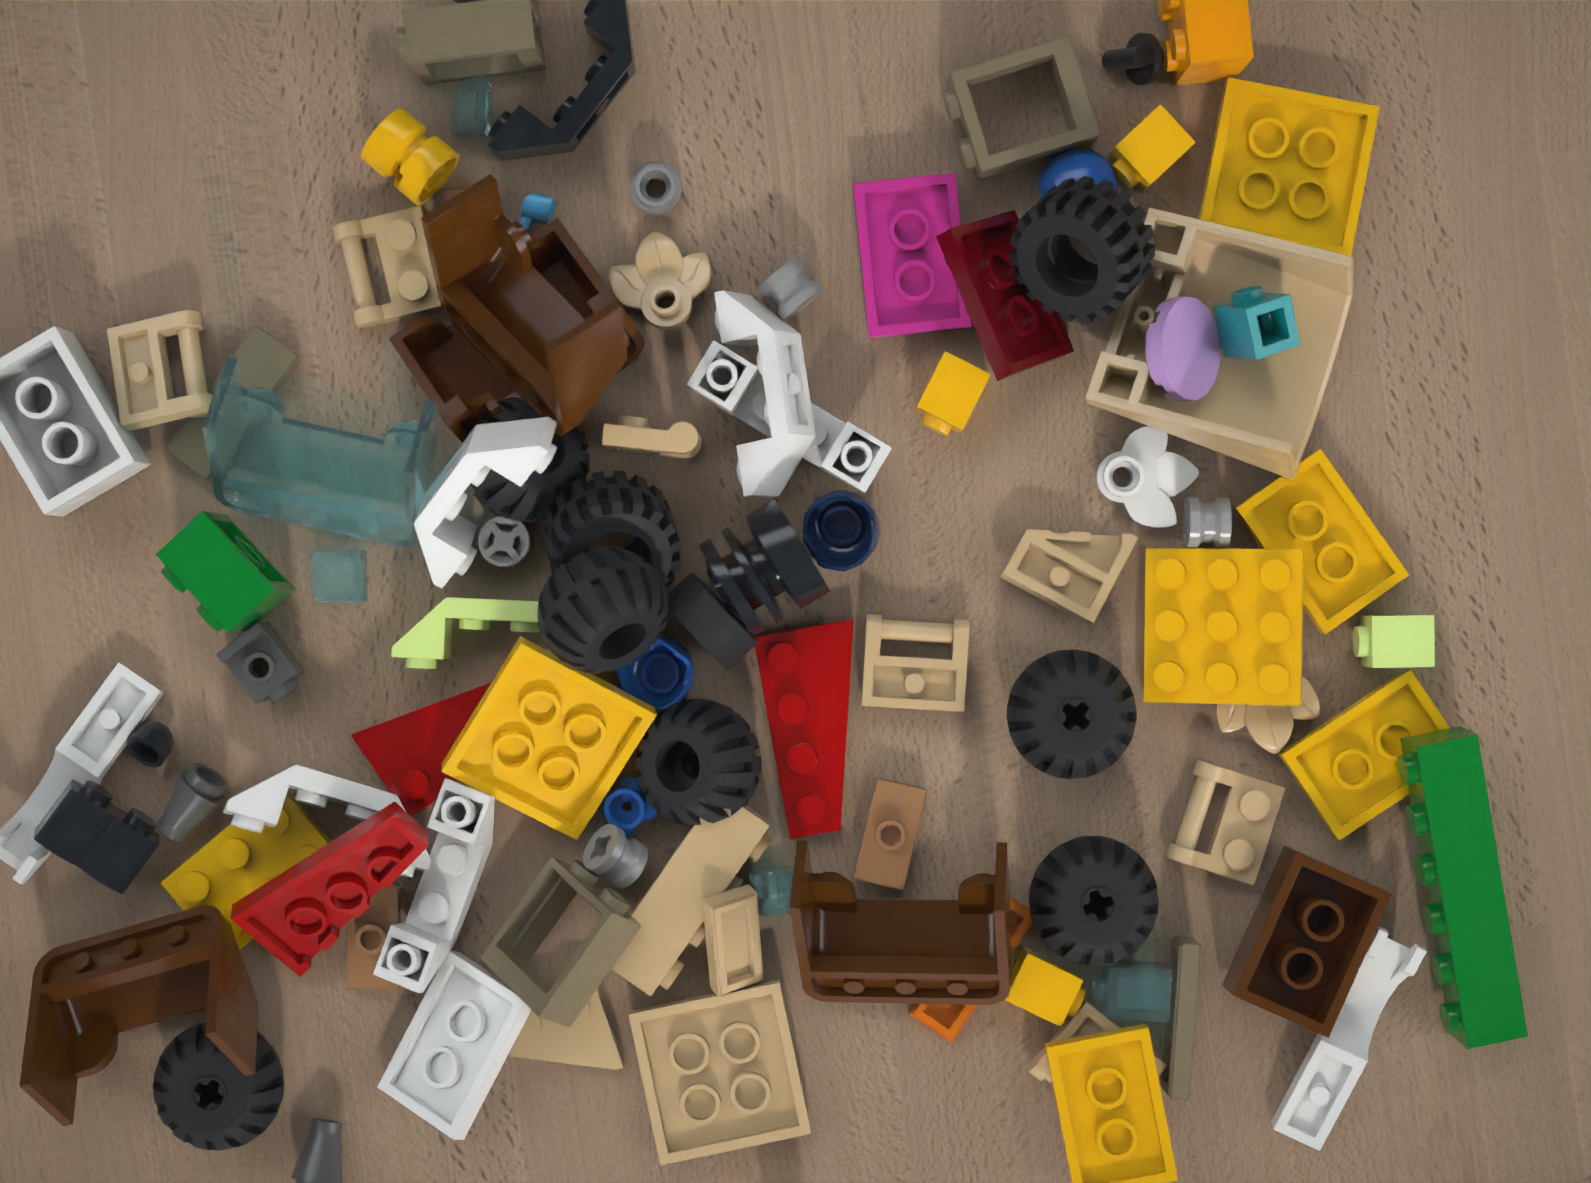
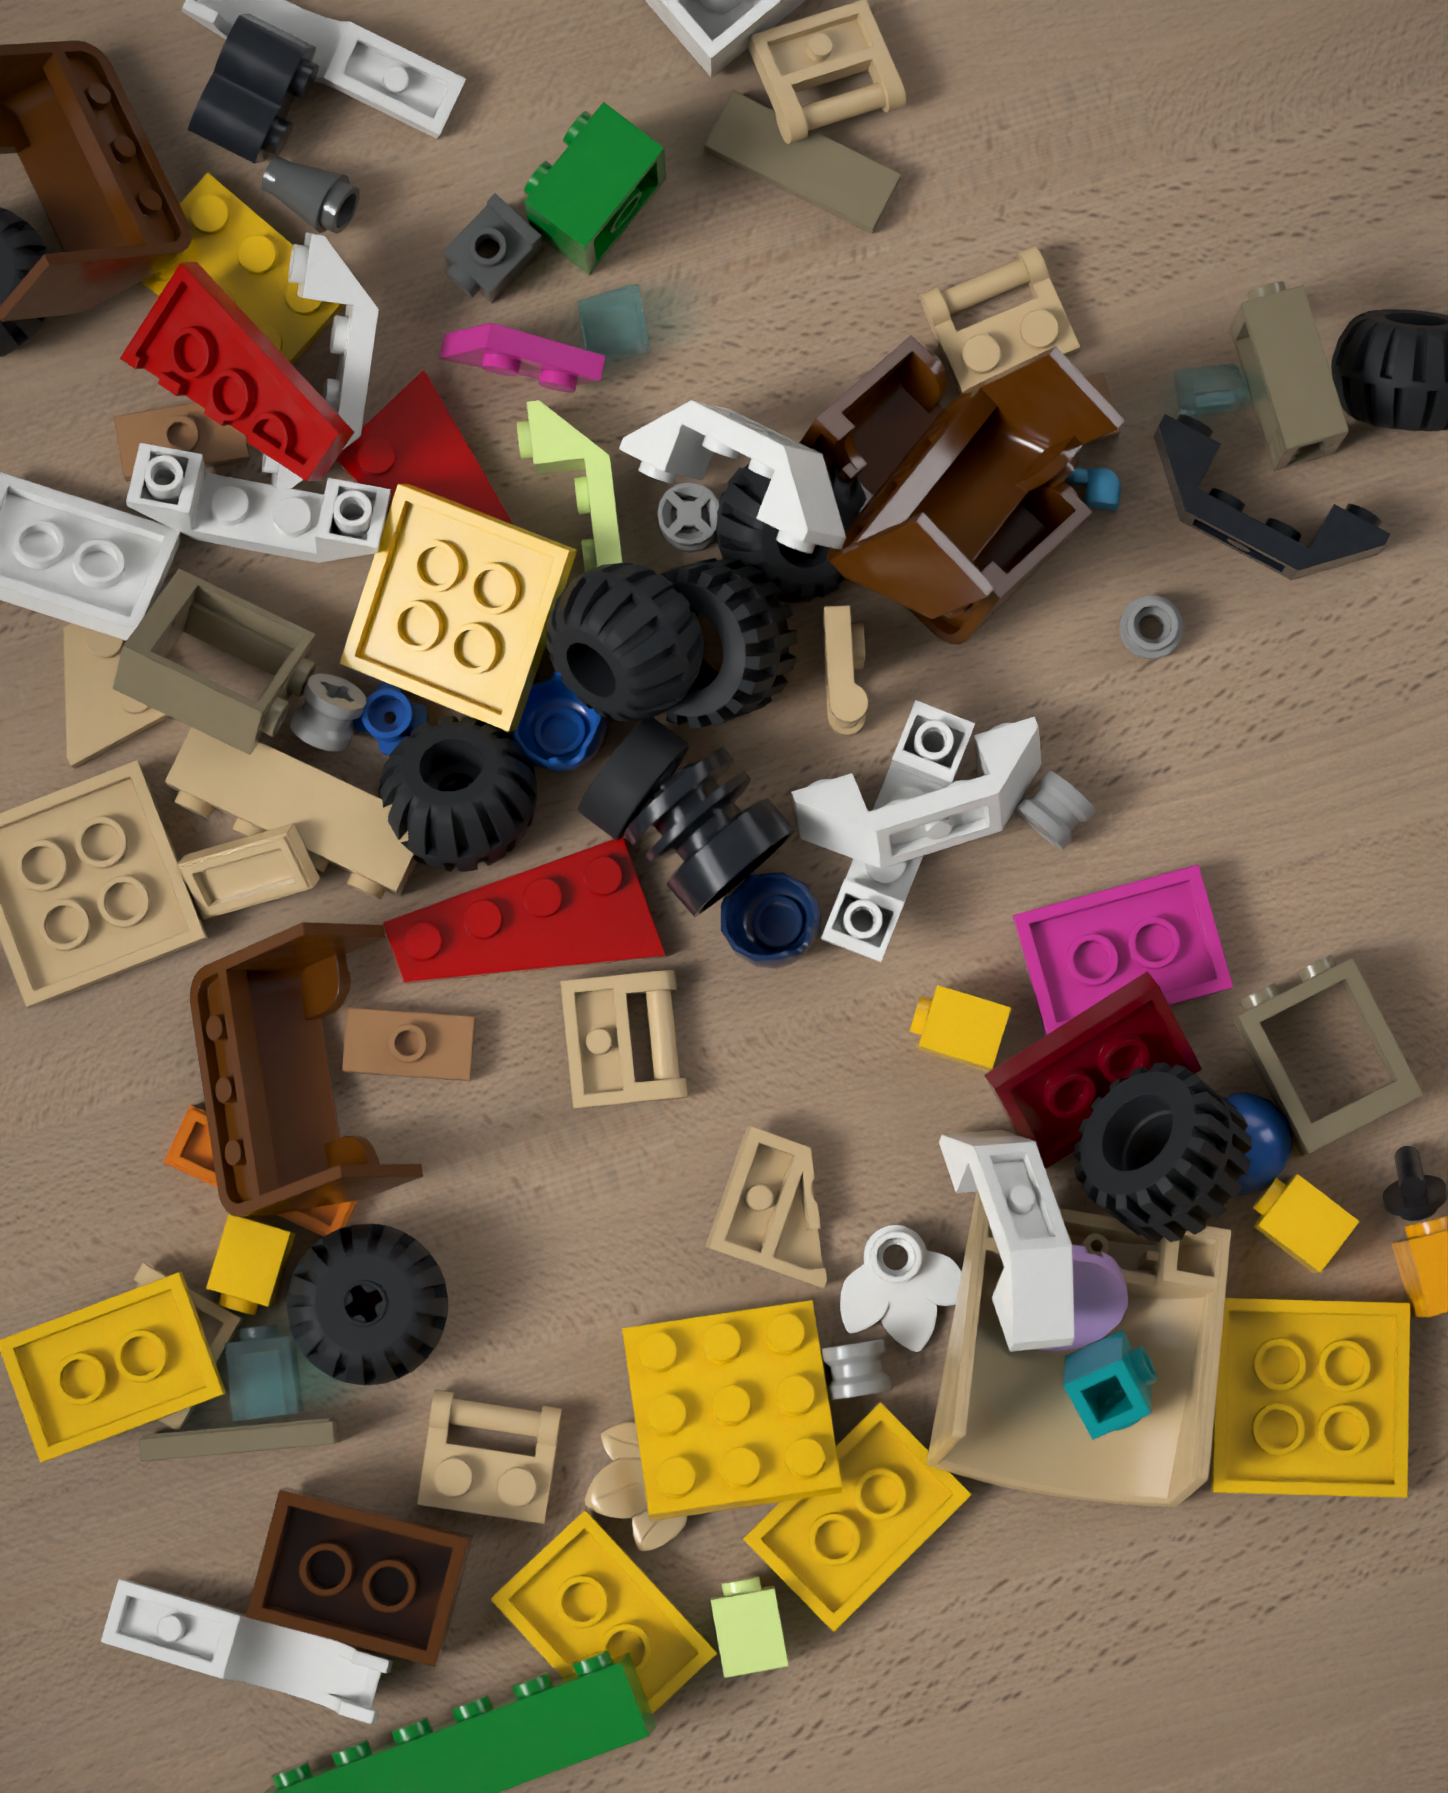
camera: 80 degrees right, 5 degrees down
(151, 744) = (373, 134): black hinge -> none
(314, 471) = (734, 275): clear light blue windscreen -> none
(350, 656) = (523, 354): none -> dark pink wing
(404, 151) = (1139, 317): yellow wheel -> none
(659, 274) = (1047, 647): tan plate -> none
(773, 889) = (317, 905): clear light blue wheel -> none
(1037, 714) = (600, 1282): black wheel -> none
(1129, 365) = (1037, 1277): none -> white slope

